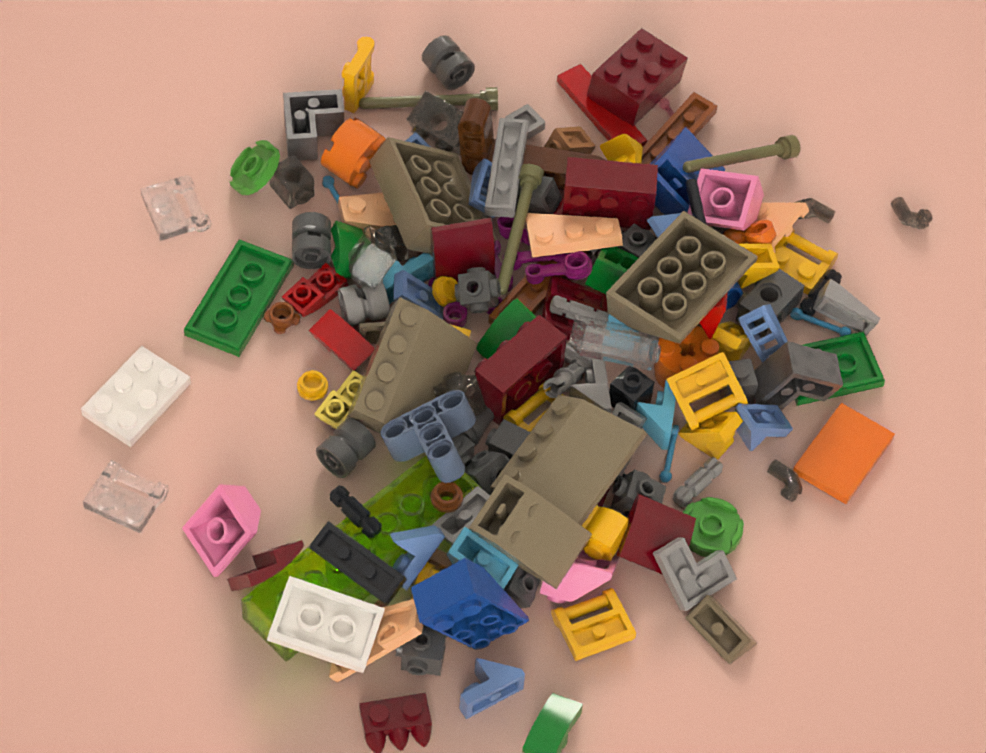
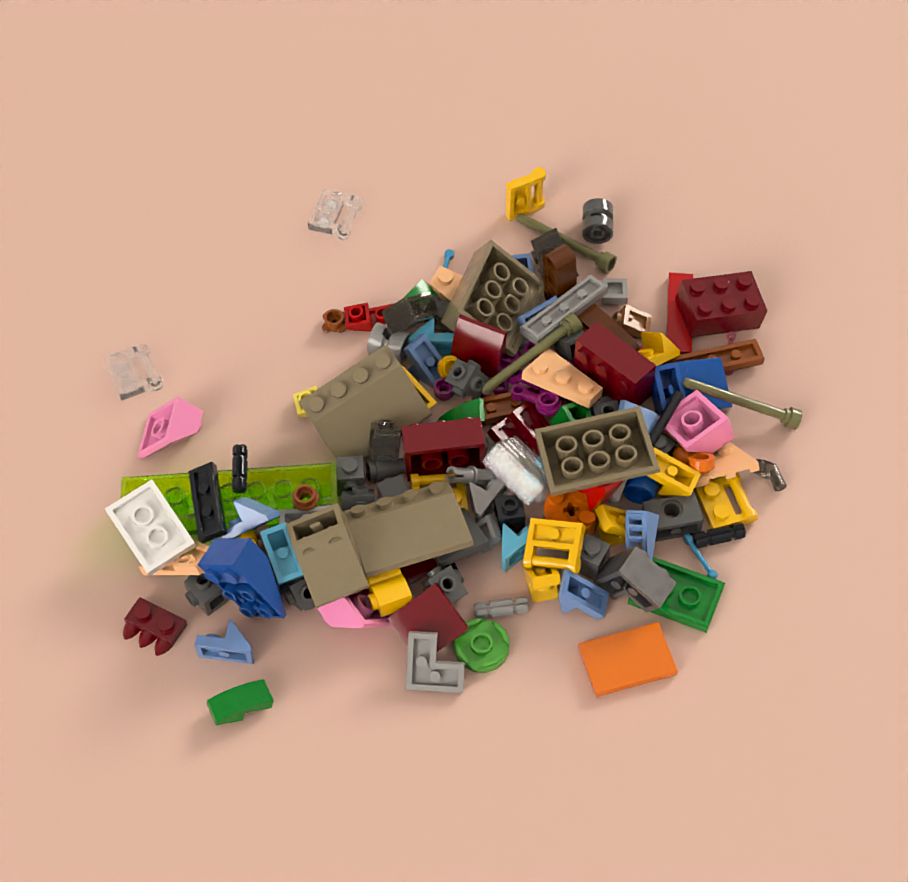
camera: 45 degrees right, 0 degrees up
(136, 396) = (201, 315): white plate -> none
(238, 298) = (321, 291): green tile -> none
(254, 167) = (403, 215): bright green tile -> none
(267, 565) = (166, 466): dark red slope -> none
(292, 182) = (421, 239): clear smoke brick -> none
(309, 116) = (467, 203): flat silver brick -> none
(311, 240) = (395, 282): dark grey wheel -> none
(312, 385) = (310, 376): yellow plate -> none
(342, 340) = (353, 350): red slope -> none
(347, 446) = (287, 427): dark grey wheel -> none
(351, 152) = (470, 236): orange brick -> none
(430, 431) = (331, 448): sand blue beam -> none
(570, 309) = (512, 424): light grey axle -> none
(596, 632) = (335, 661): yellow plate -> none
(665, 475) = (484, 588): dark azure hinge -> none
(720, 629) = (421, 719): dark tan slope -> none
(788, 477) = (568, 650): clear smoke arm -> none
(844, 308) = (720, 554): light grey slope -> none
(909, 218) = (846, 530): clear smoke arm -> none

